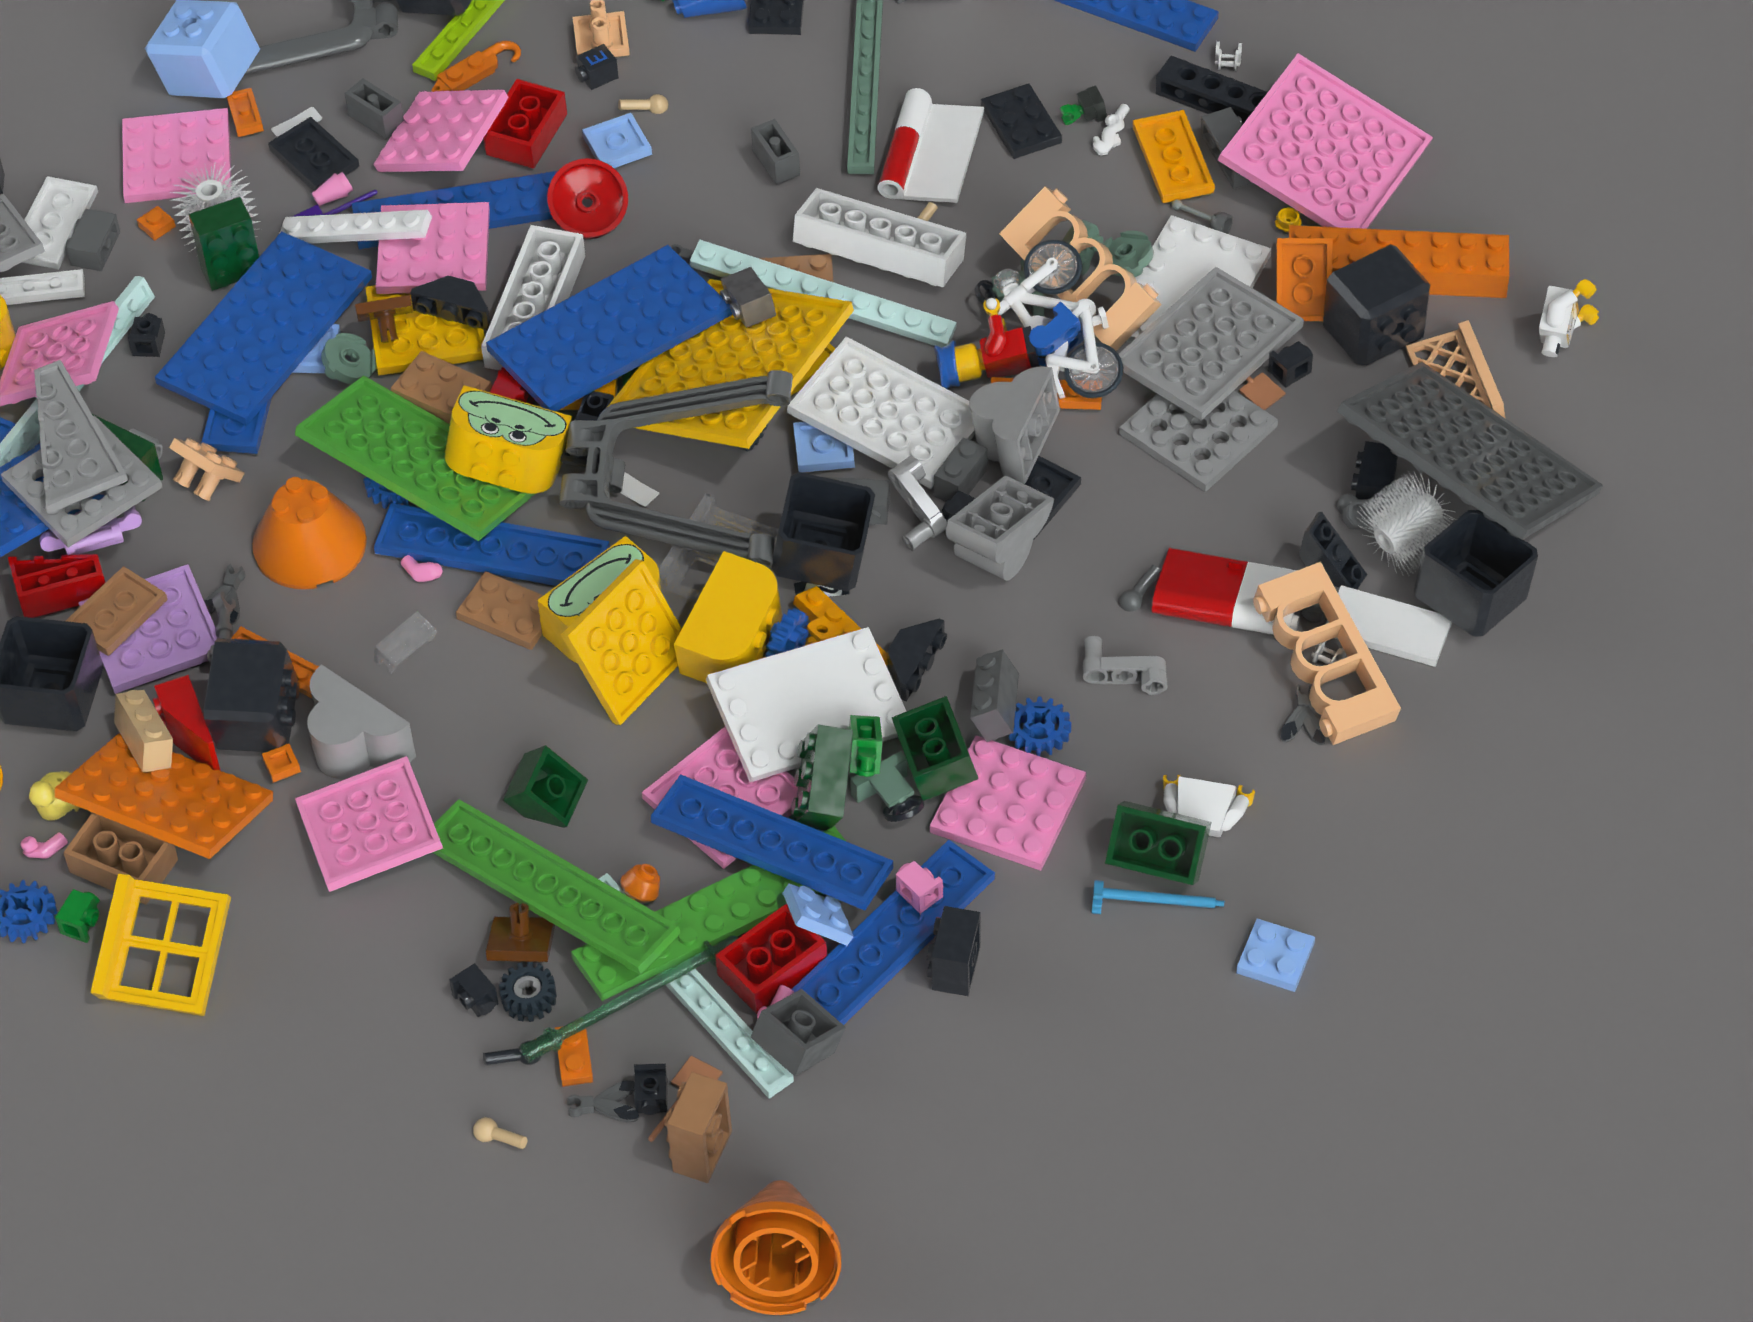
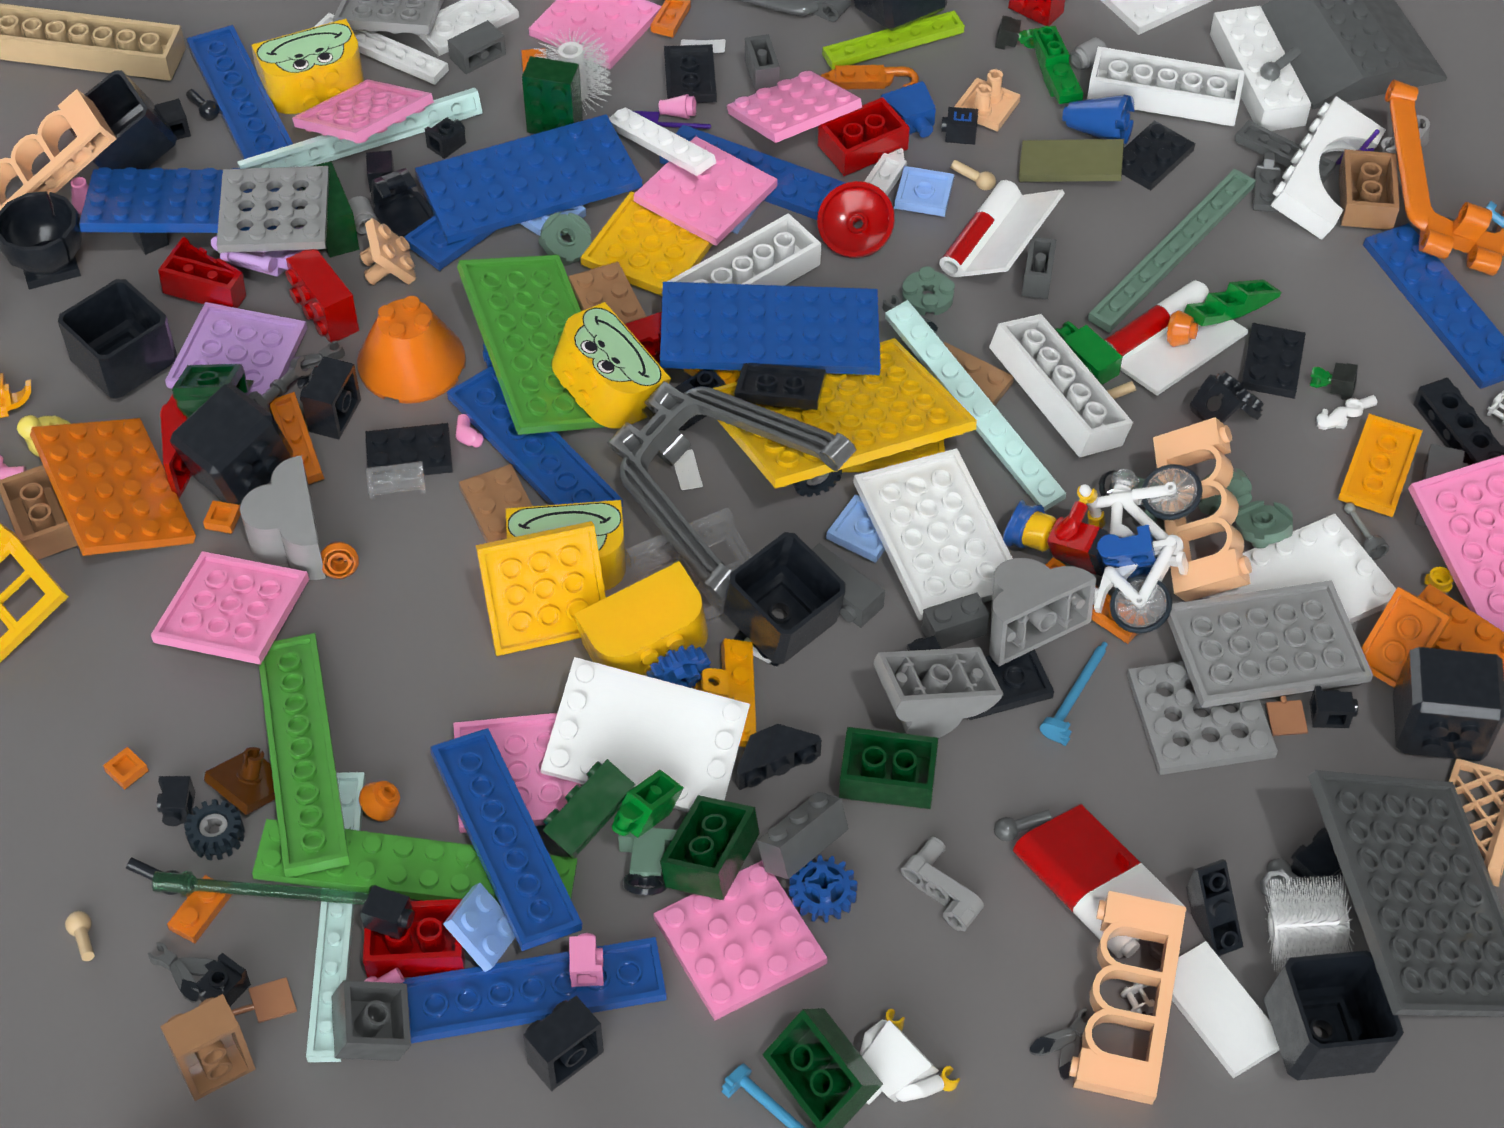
camera: 35 degrees right, 0 degrees up
(73, 448) = (284, 176): light grey wing -> none
(119, 399) = (378, 165): none -> black brick
(119, 608) = (217, 323): medium nougat plate -> none
(143, 730) = (139, 426): tan brick -> none
(170, 417) = (402, 208): none -> black piece
(182, 661) = (202, 381): none -> dark green piece
(185, 532) = (322, 295): none -> red brick
(282, 608) = (330, 397): none -> black brick
(383, 612) = (409, 445): none -> black plate
(384, 311) = (616, 215): reddish brown tile -> none
(406, 996) = (125, 768): none -> orange plate
(423, 730) = (339, 560): none -> orange cone
(452, 300) = (677, 236): black slope -> none
(545, 70) = (914, 107): none -> blue torso
(545, 788) = (387, 669): dark green slope -> none
(569, 141) = (887, 170): none -> white plate
(668, 367) = (781, 385): none -> black plate
(696, 214) = (928, 280): none -> sand green plate
(717, 45) = (1071, 160): none -> olive tile
(717, 139) = (998, 231): none -> white door
(745, 945) = (387, 912): none -> black brick
(747, 297) = (897, 367): flat silver brick -> none
(877, 192) = (1092, 350): none -> green brick
(905, 480) = (898, 594): light grey beam -> none
(934, 135) = (1181, 329): none -> orange cone
(953, 92) = (1237, 301): none -> green slope
(1011, 608) = (888, 767): none -> dark green brick
(1028, 170) = (1234, 398): none -> black piece
(1103, 504) = (1055, 727): none -> dark azure piece

